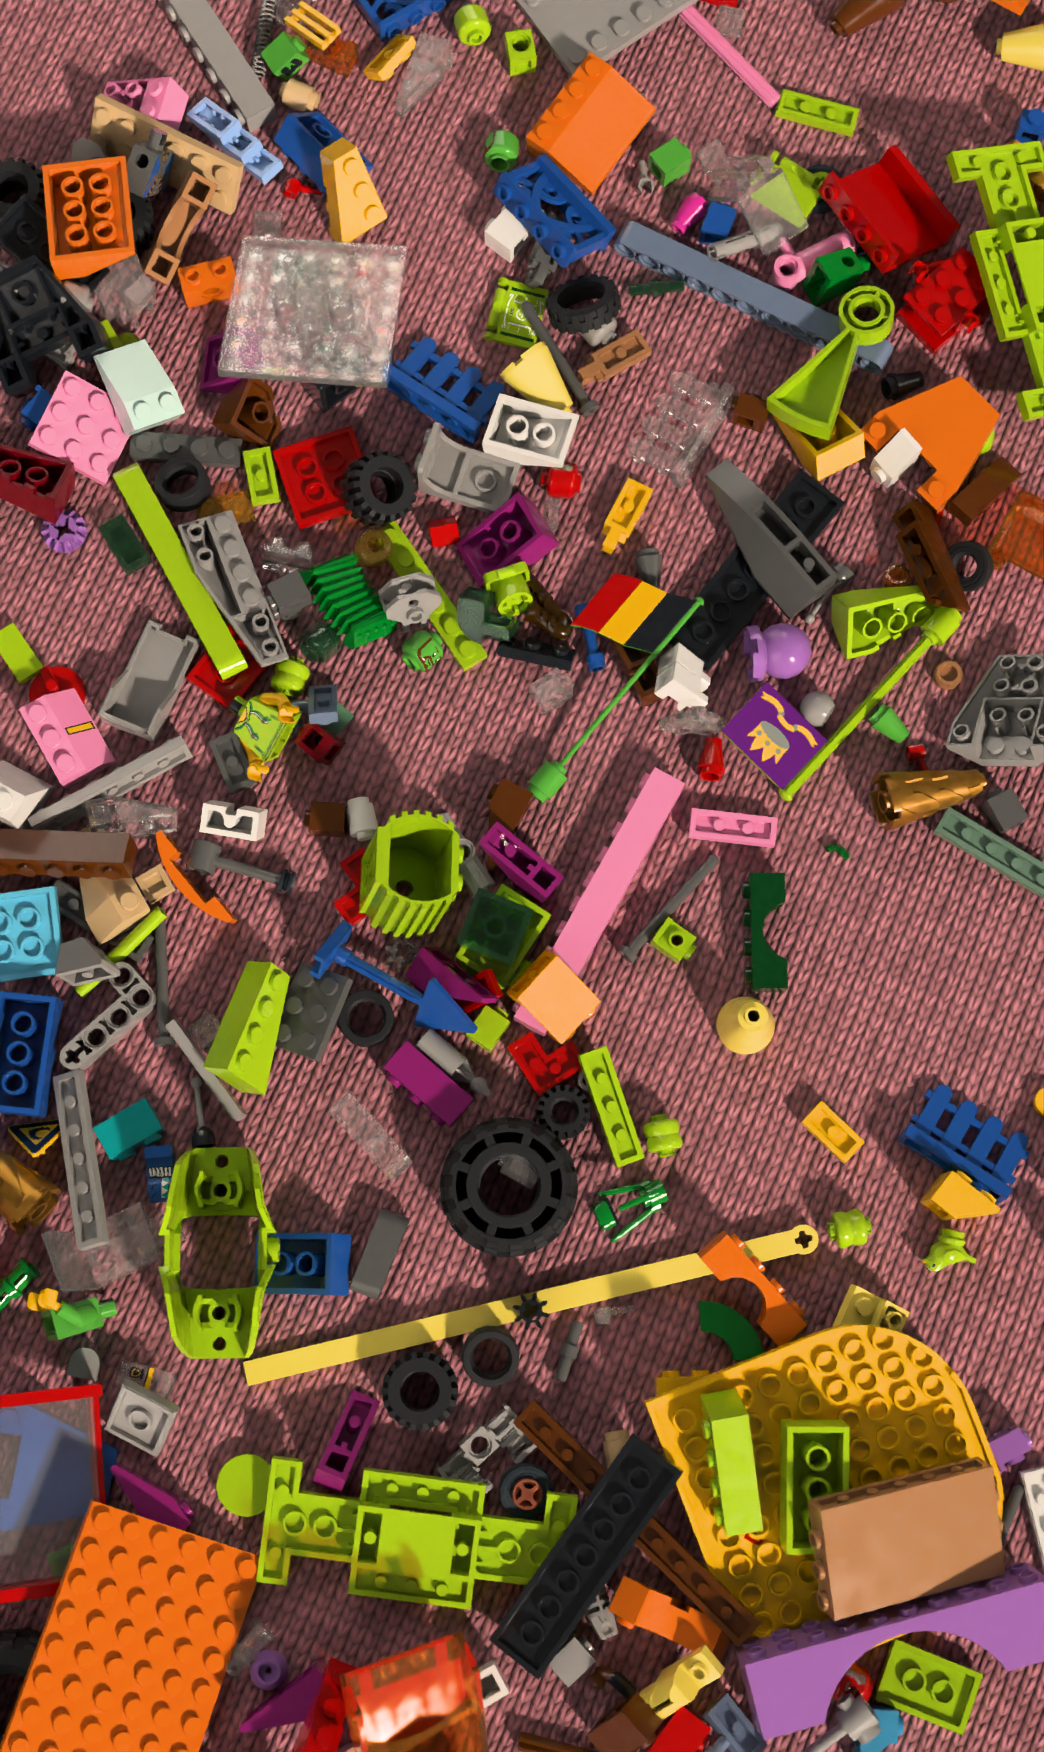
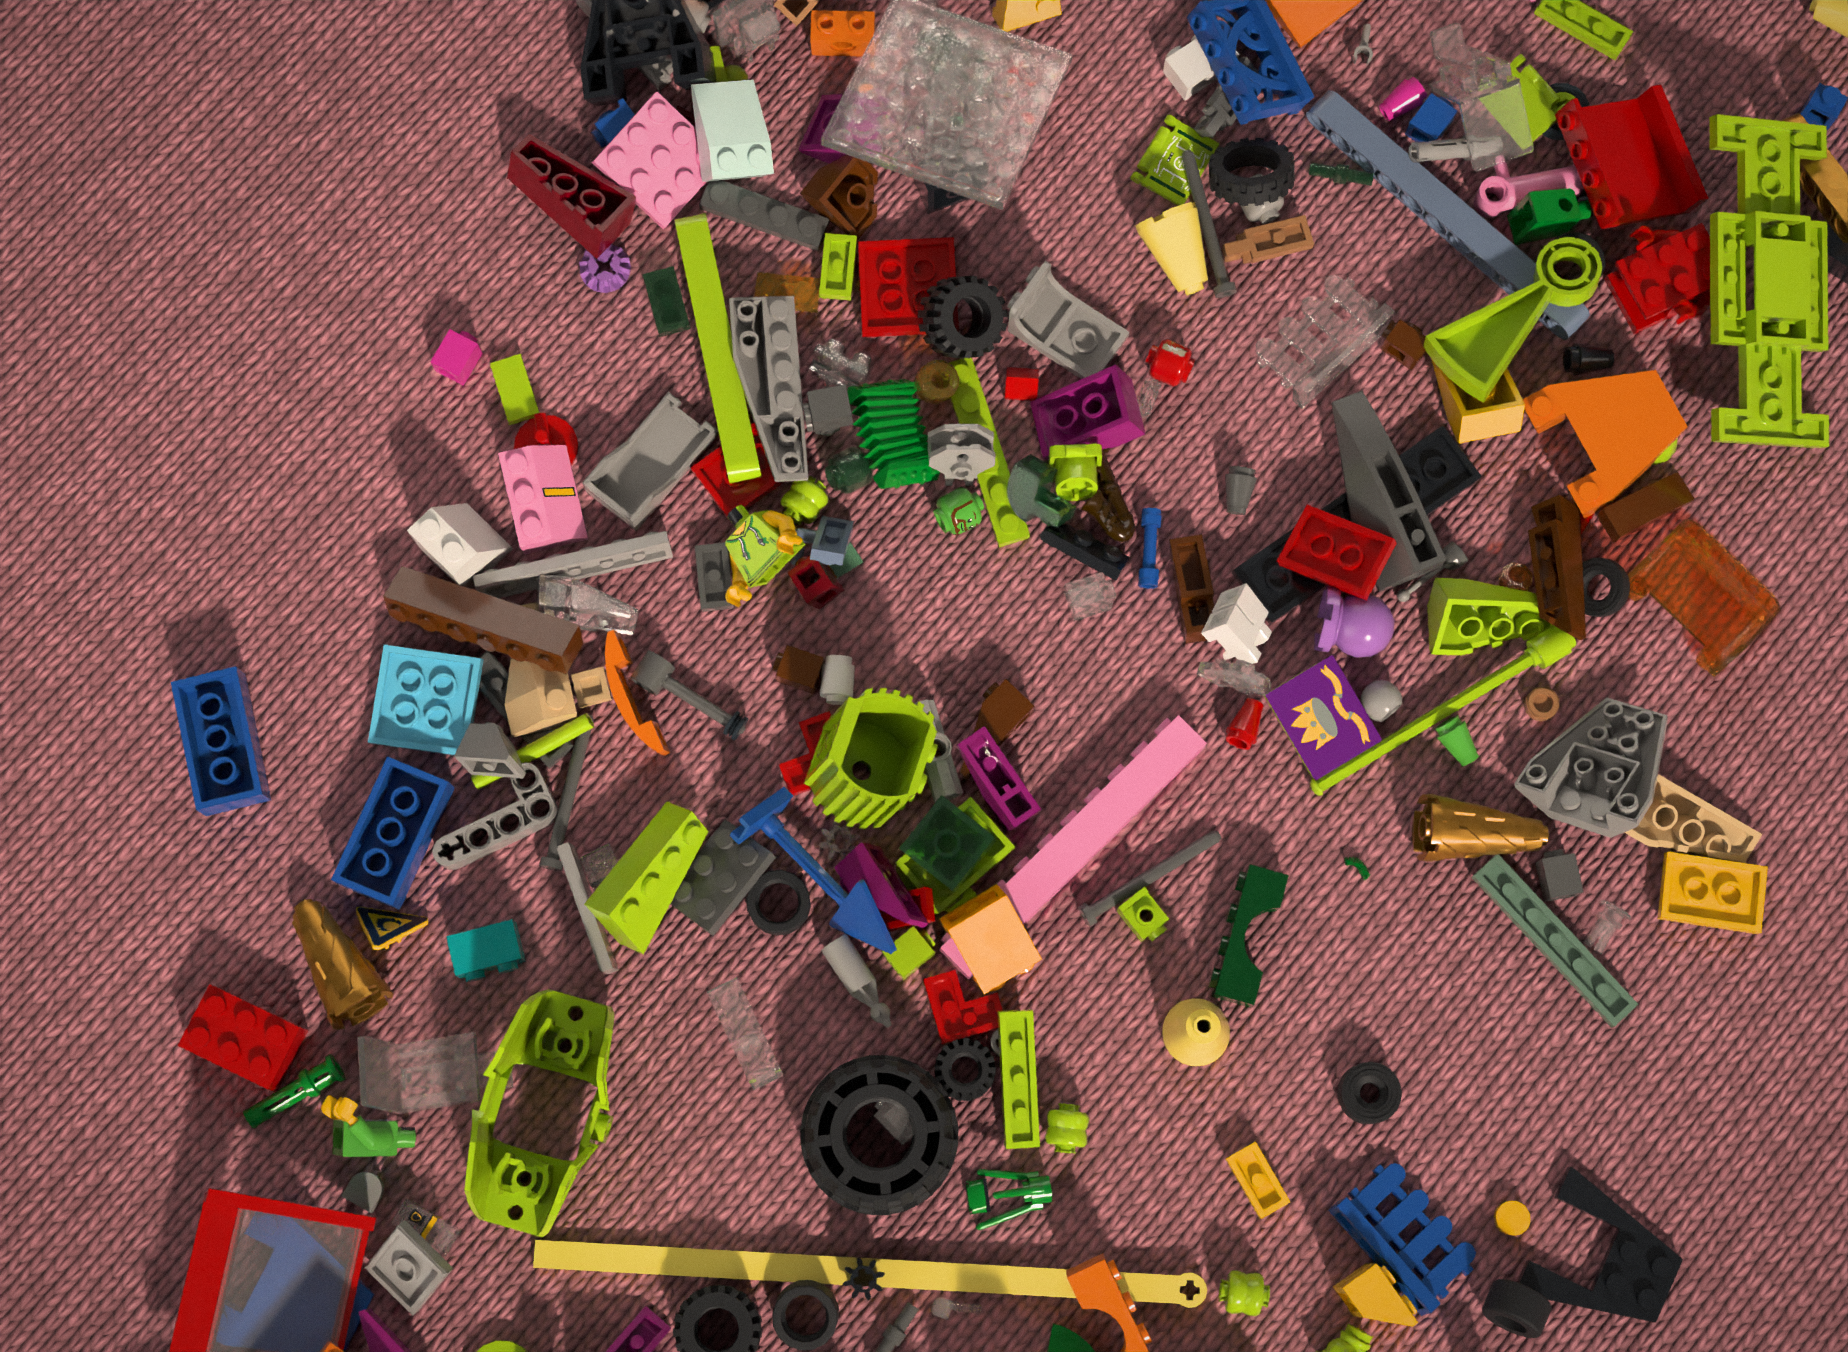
camera: 20 degrees right, 0 degrees up
(80, 1160) = (423, 967): light grey plate -> none
(160, 1166) = (506, 1000): blue leg -> none
(179, 467) = (748, 232): black tyre -> none
(202, 1135) = (563, 979): hinge -> none
(221, 819) = (706, 648): white brick -> none
(310, 1265) = (638, 1155): blue slope -> none
(379, 1253) = (717, 1166): dark grey beam -> none
(427, 1085) = (823, 996): magenta brick -> none
(434, 401) = (1061, 242): blue fence -> none
(529, 432) = (1148, 300): white slope -> none
(625, 514) = (1230, 420): yellow hinge -> none
(636, 618) = (1205, 541): flag -> none
(669, 162) = (1398, 35): bright green brick -> none
(733, 827) = (1247, 807): bright pink plate -> none
(746, 596) = (1336, 552): none -> red plate
(895, 459) = (1553, 443): white slope -> none
(914, 1021) = (1386, 1083): none -> black tyre
(916, 752) = (1480, 782): red hand -> none

